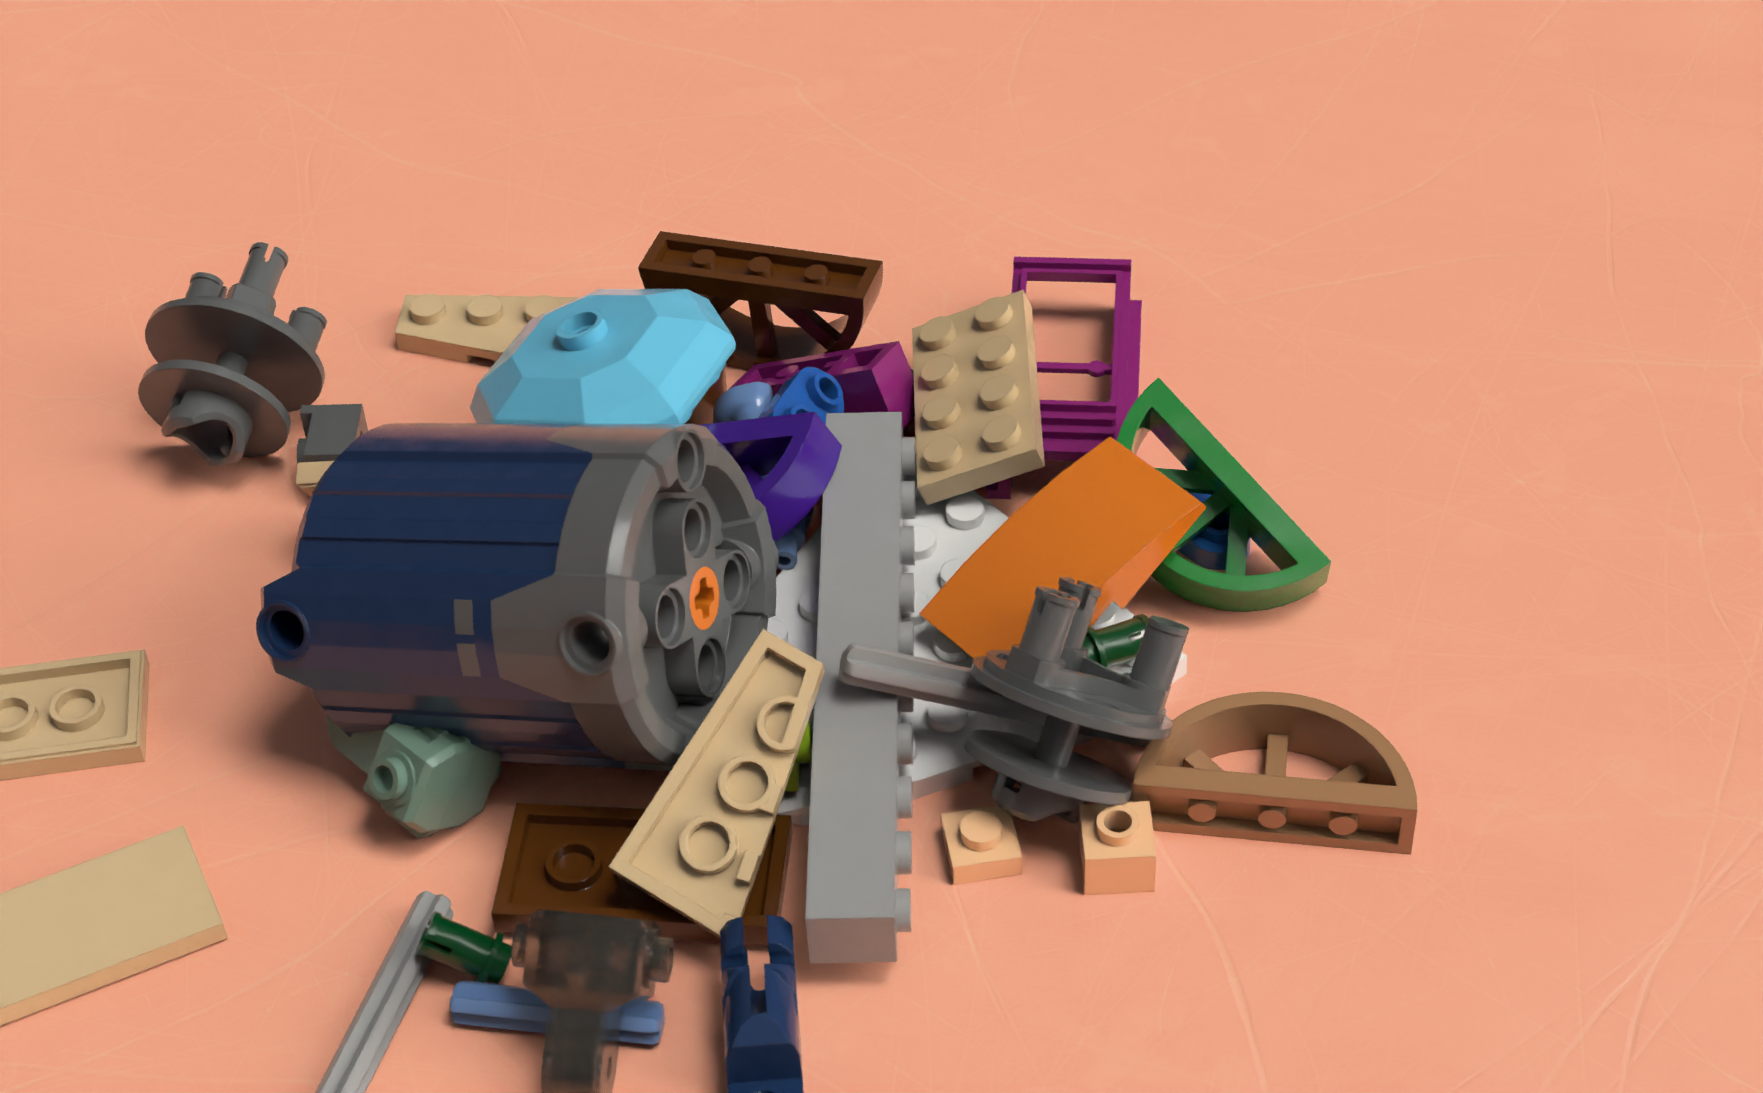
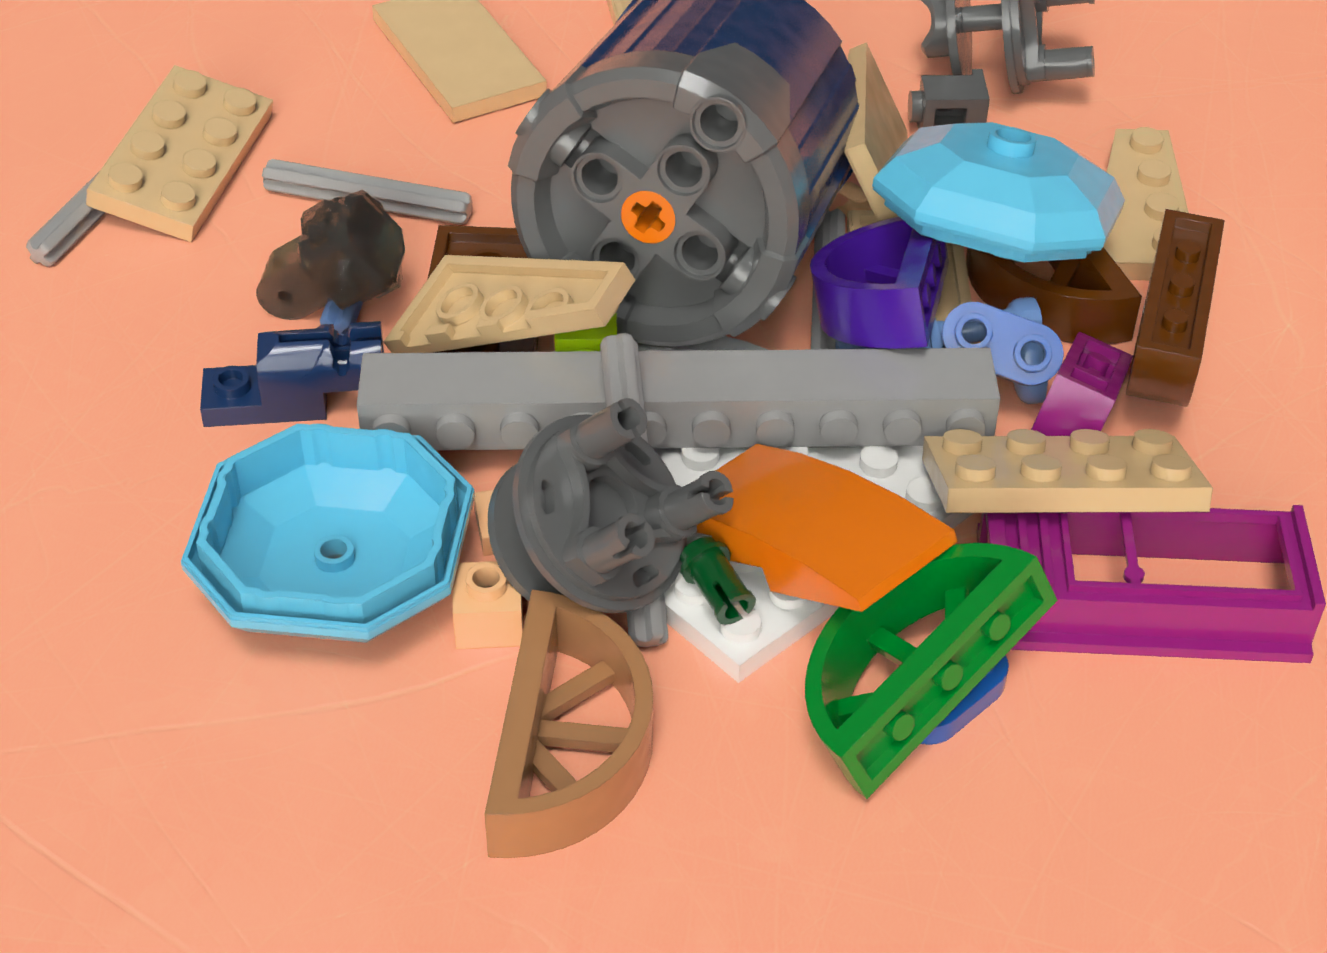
camera: 85 degrees right, 0 degrees up
(465, 949) = (409, 212): dark green pin -> none
(1058, 912) = (329, 532): none -> medium azure rock

